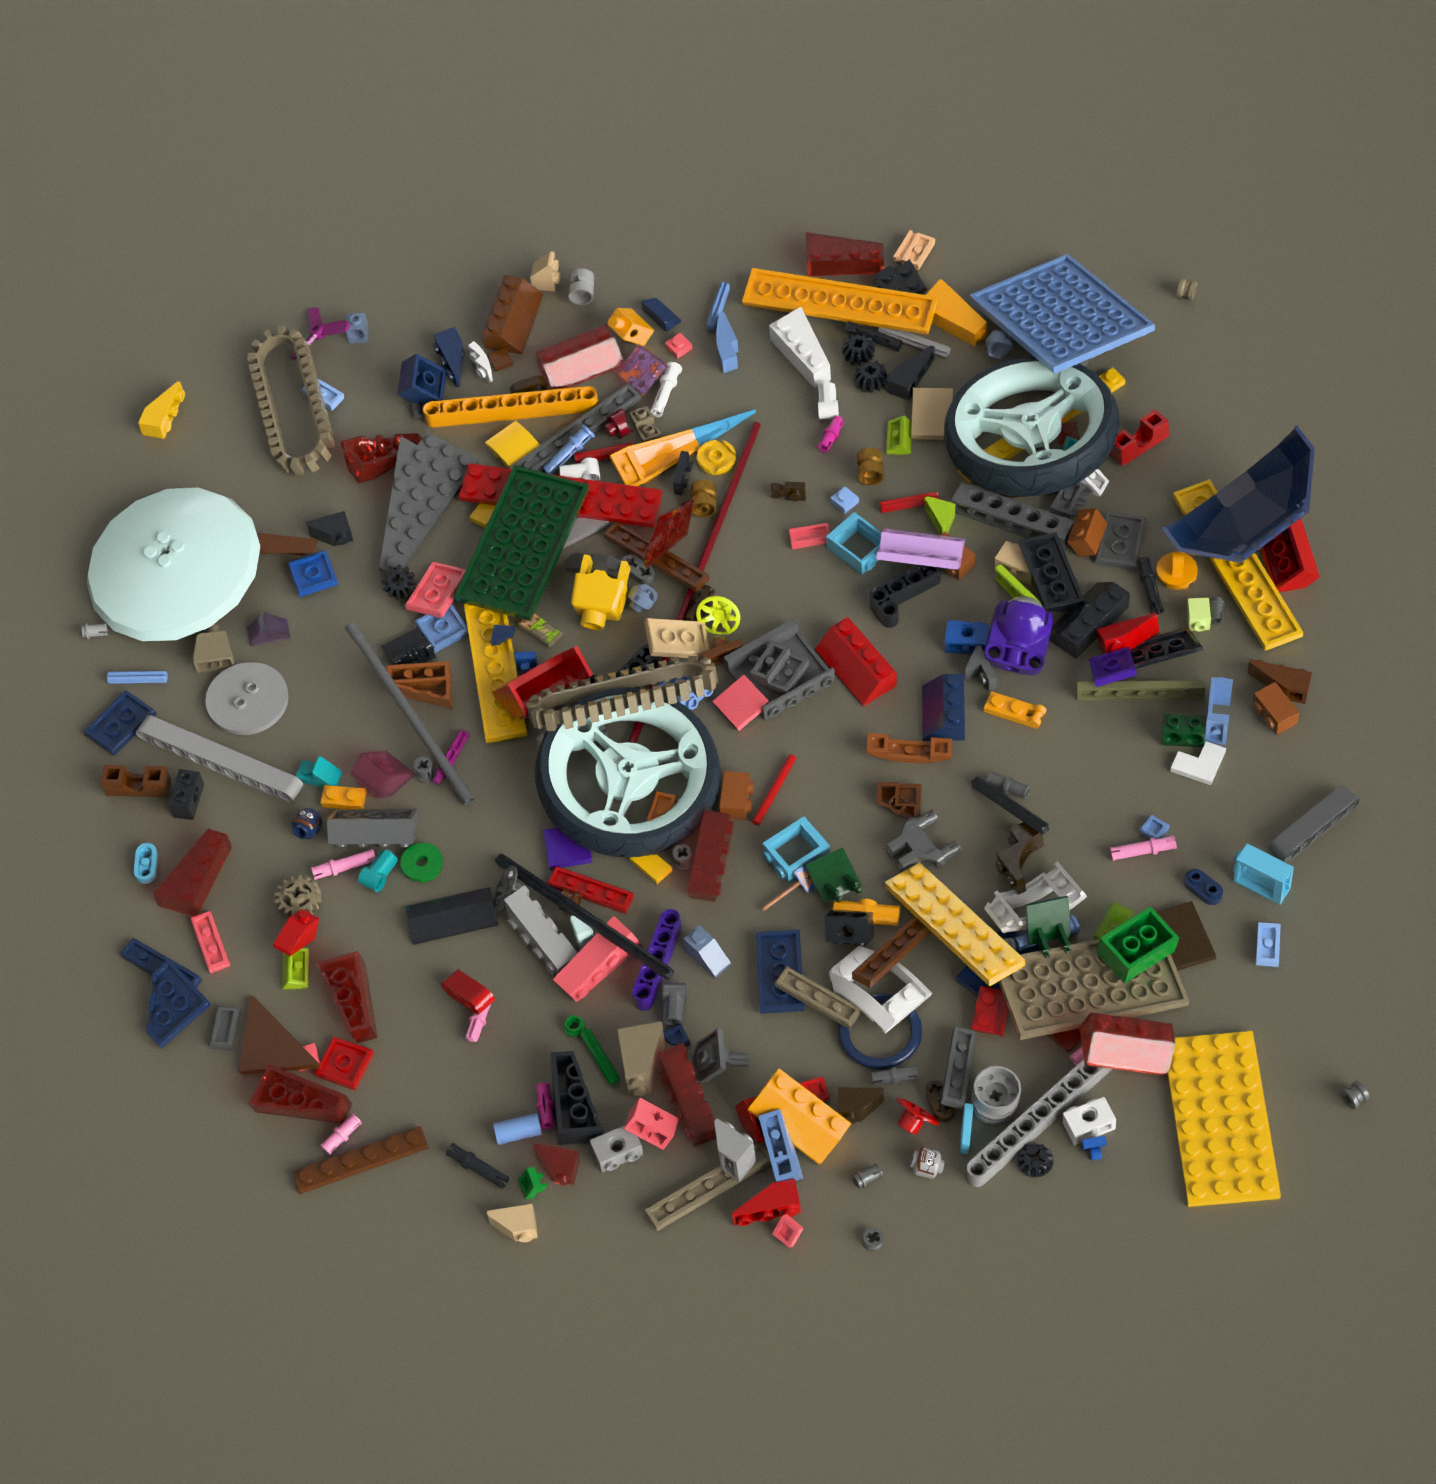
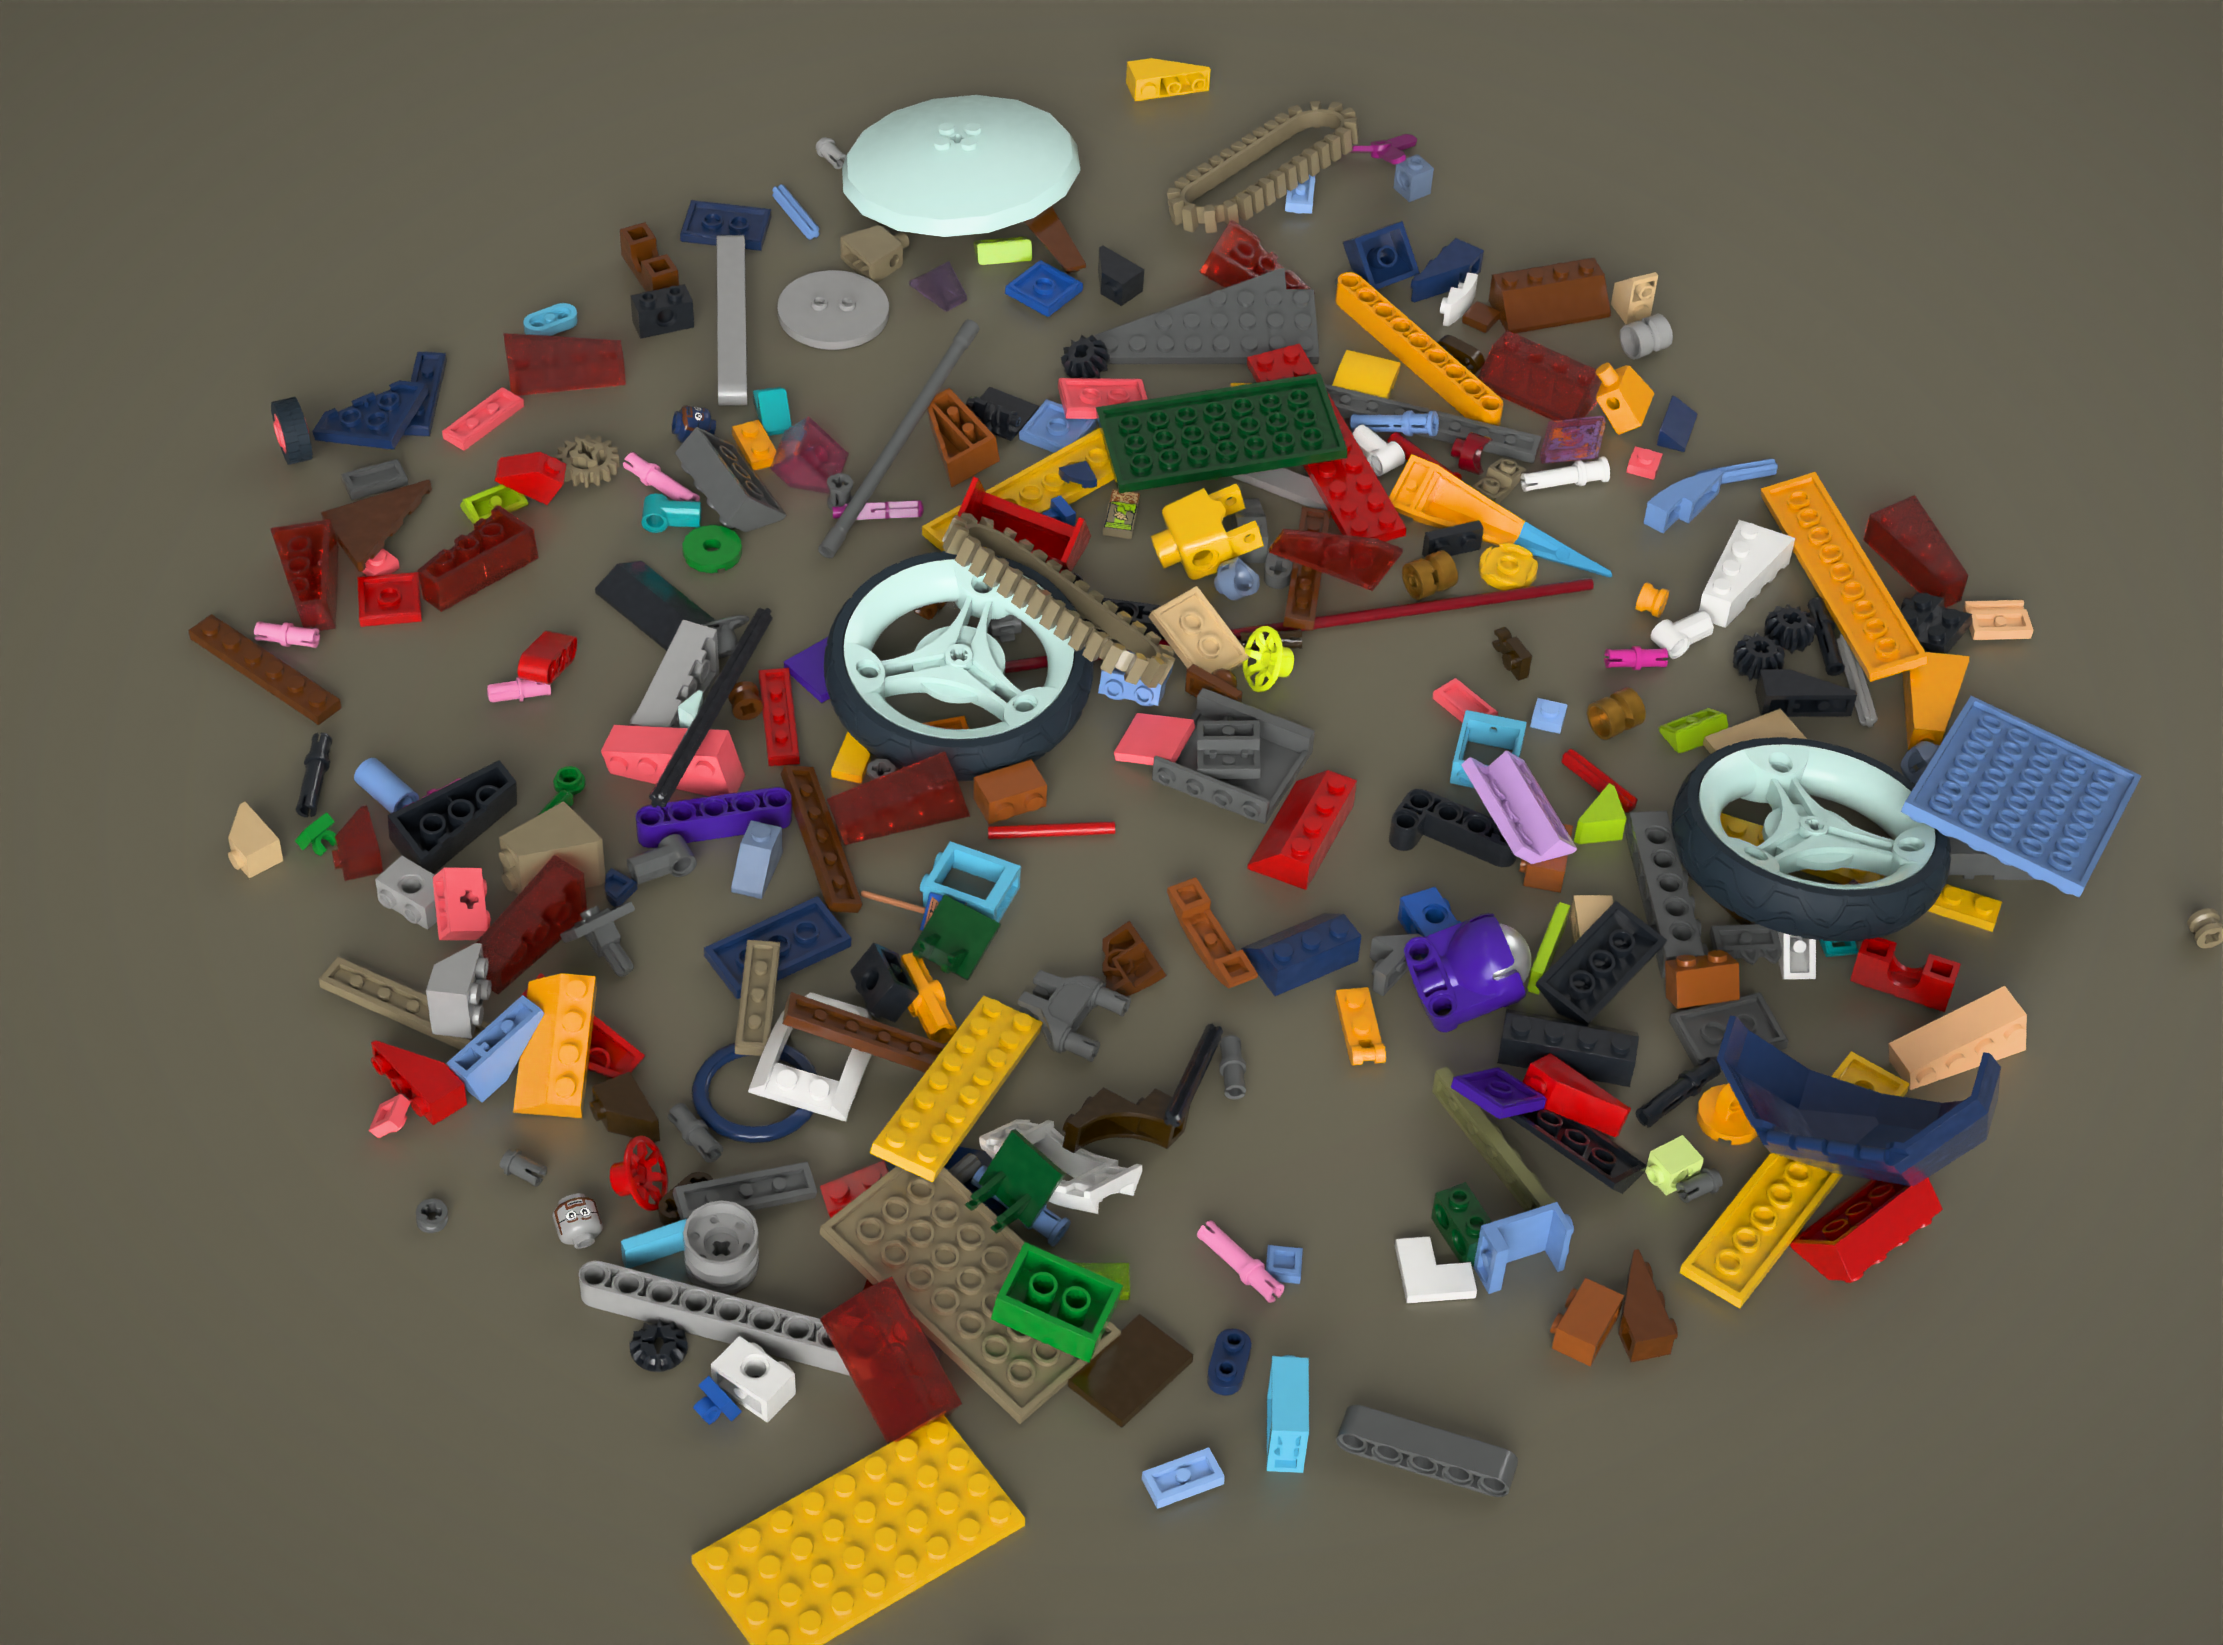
camera: 50 degrees right, 10 degrees down
(159, 1055) = (291, 430): none -> black wheel
(264, 573) = (1003, 250): none -> slope
(710, 910) = (821, 839): none -> reddish brown plate
(793, 401) = (1652, 600): none -> light orange wheel
(1198, 440) = (1958, 1039): none -> light nougat wedge

